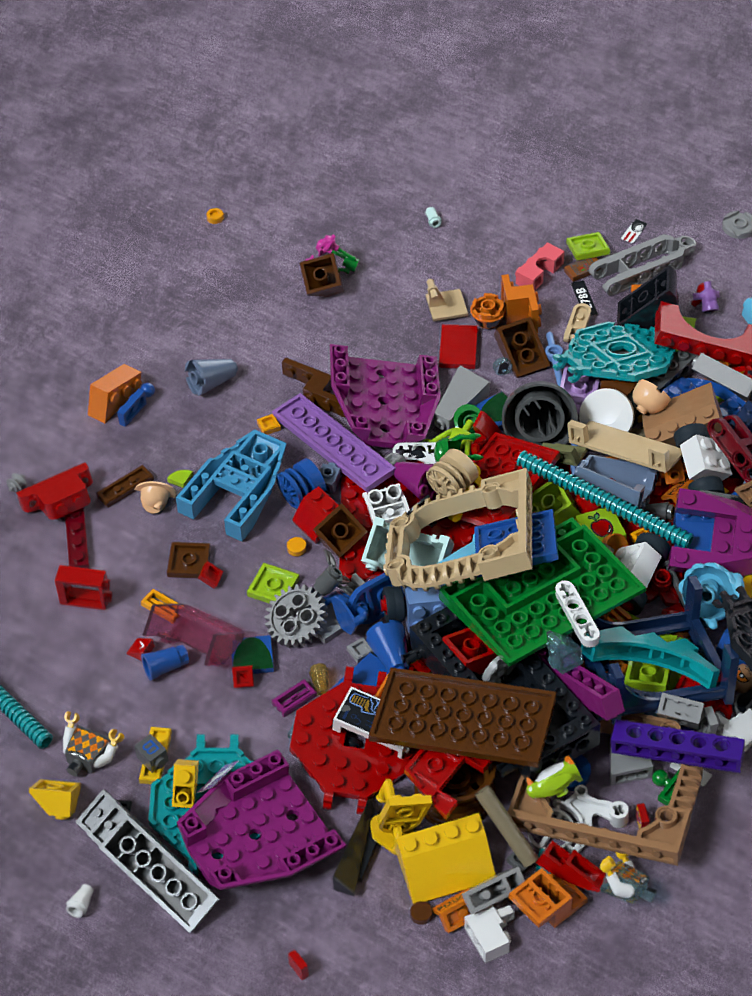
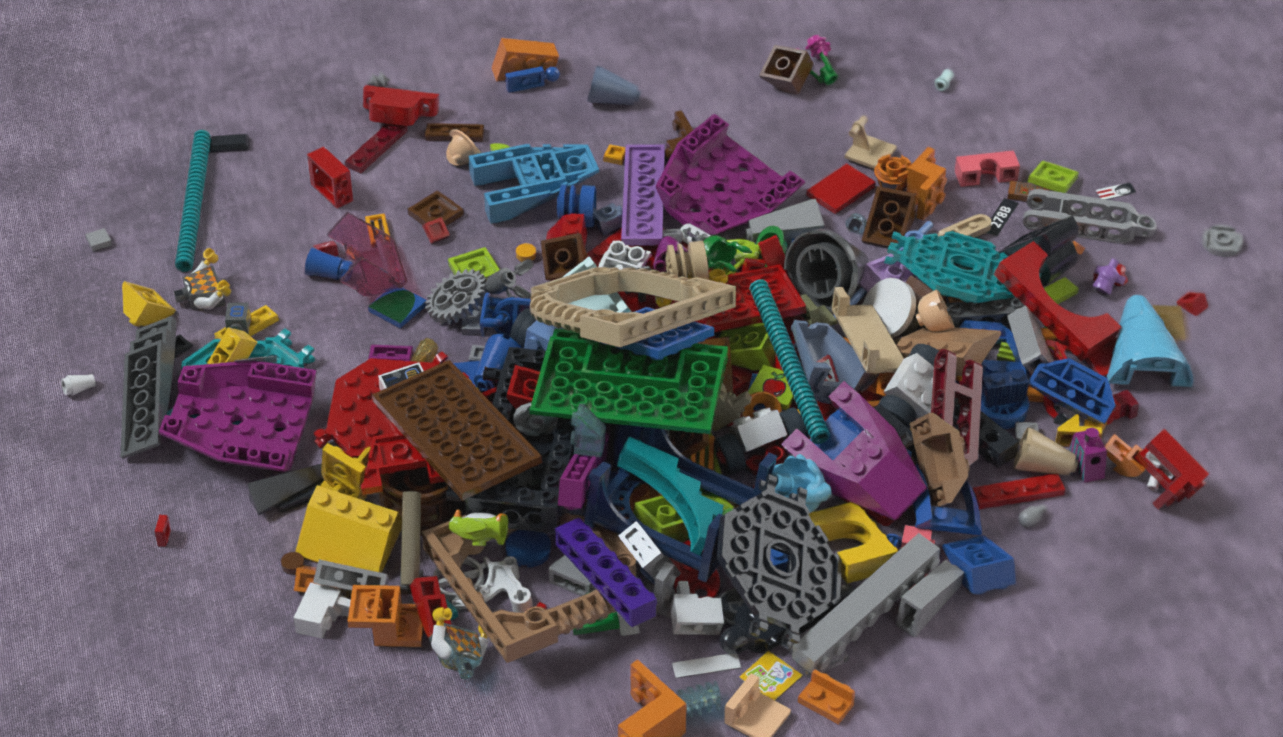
camera: 40 degrees right, 5 degrees down
(243, 676) = (370, 314): red tile -> none
(574, 614) = (630, 410): white beam -> none

